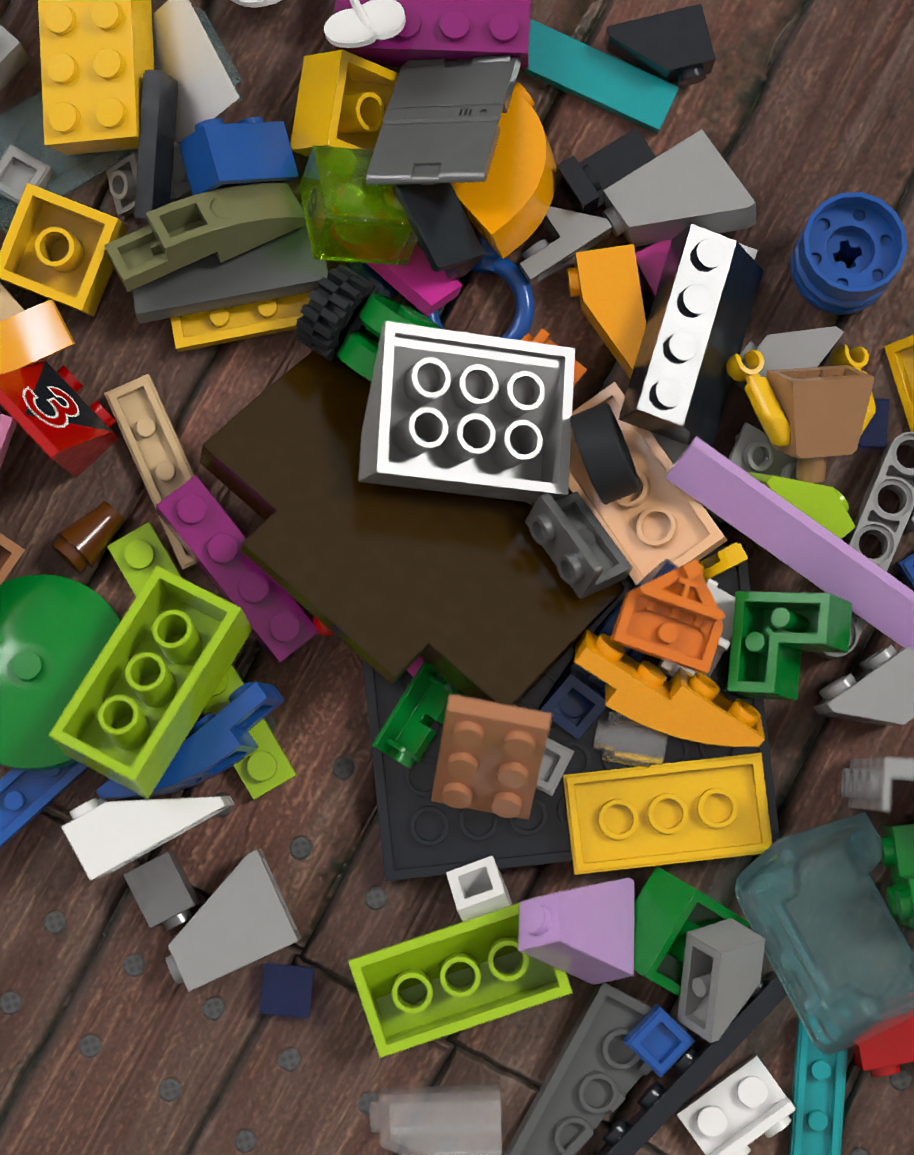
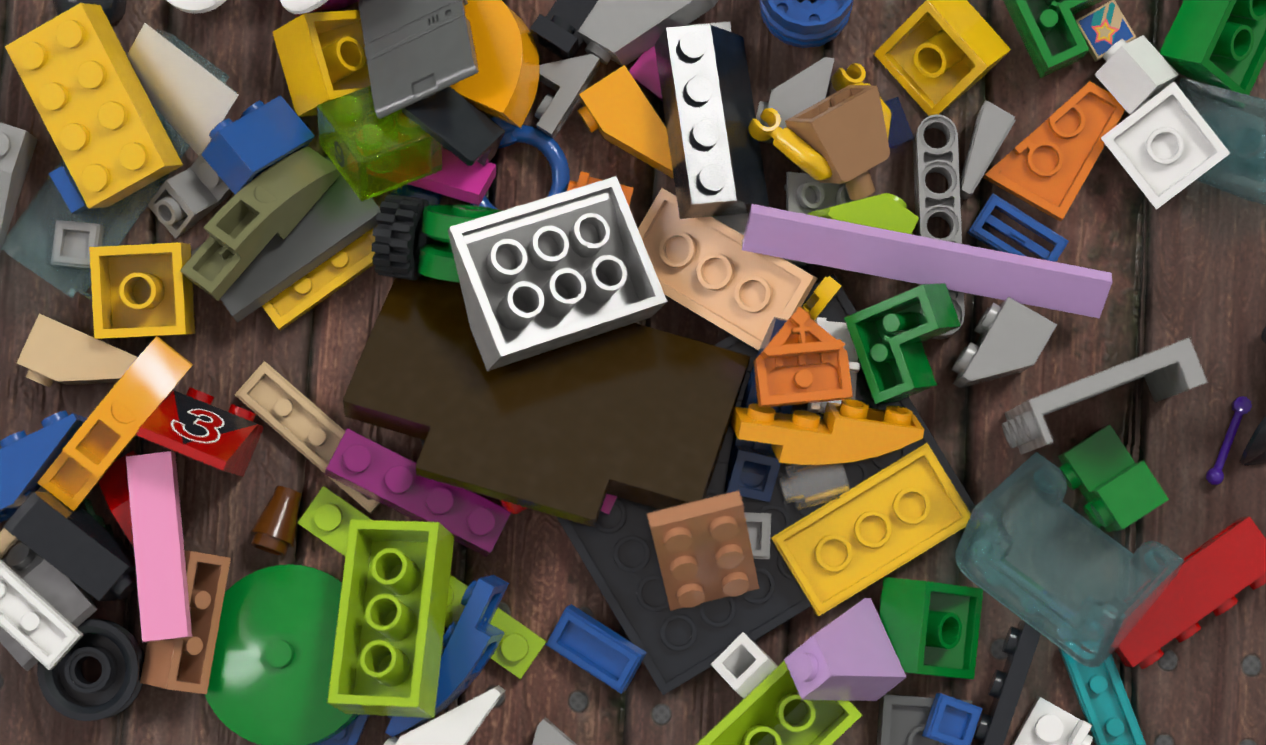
camera: 25 degrees left, 0 degrees up
(34, 119) = (68, 190): none -> blue tile
(155, 142) = (182, 164): black tile -> none
(341, 804) = (596, 648): none -> blue tile
(408, 727) = (623, 560): green hinge -> none
(577, 543) = (693, 338): flat silver bracket -> none
(605, 453) = (682, 252): black tyre -> none
(718, 976) = (977, 645): light grey slope -> none

